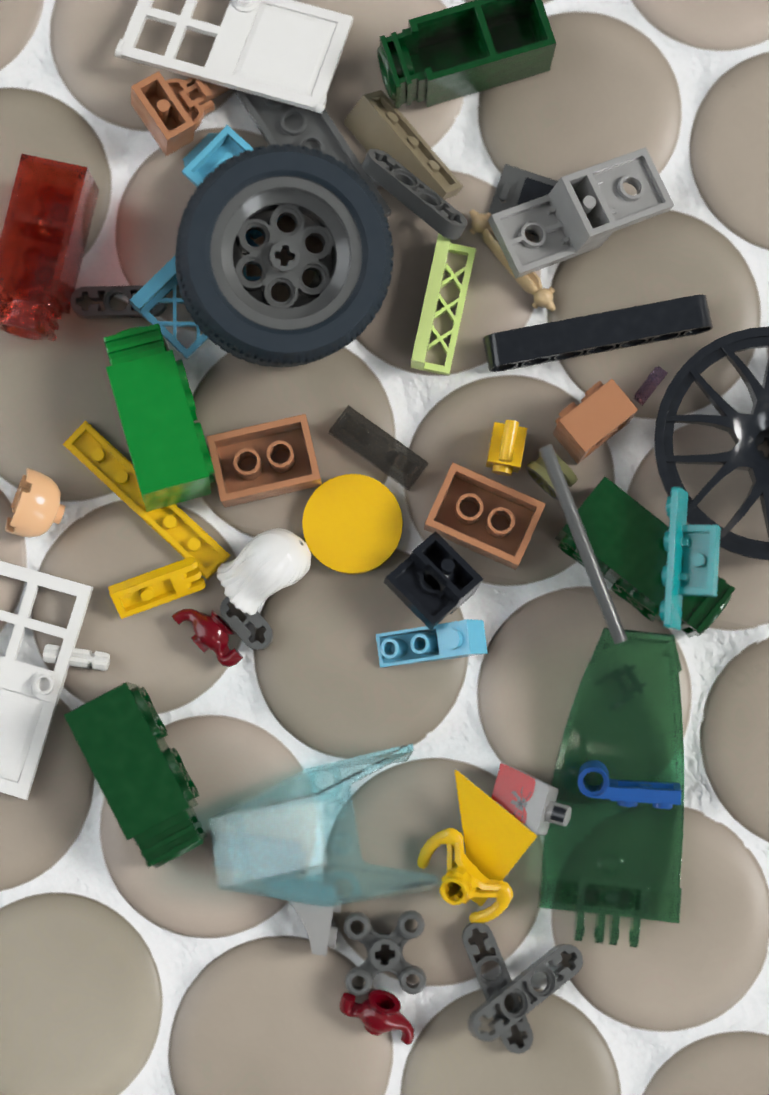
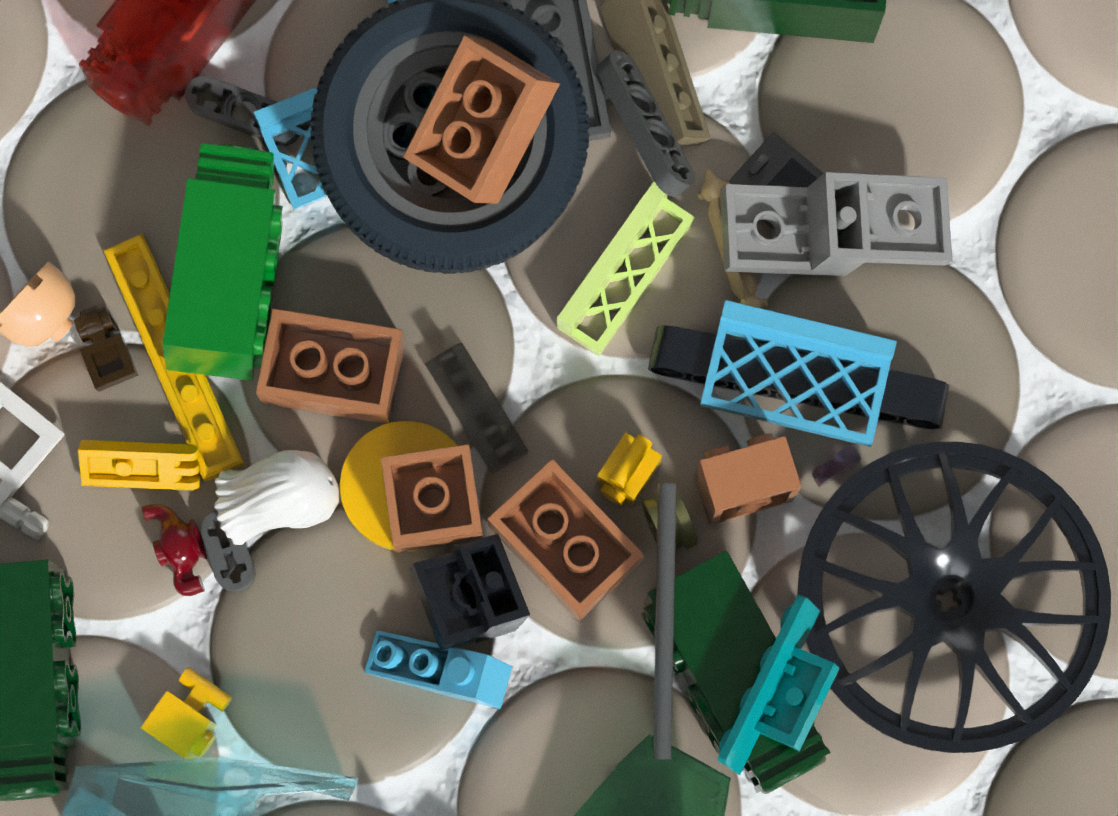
camera: 20 degrees right, 5 degrees down
(99, 520) = (107, 358): none -> dark brown plate
(268, 757) = (180, 722): none -> yellow brick
(309, 237) = (481, 120): none -> nougat brick
(379, 525) = (431, 498): none -> nougat brick
(592, 302) = (807, 337): none -> medium azure fence

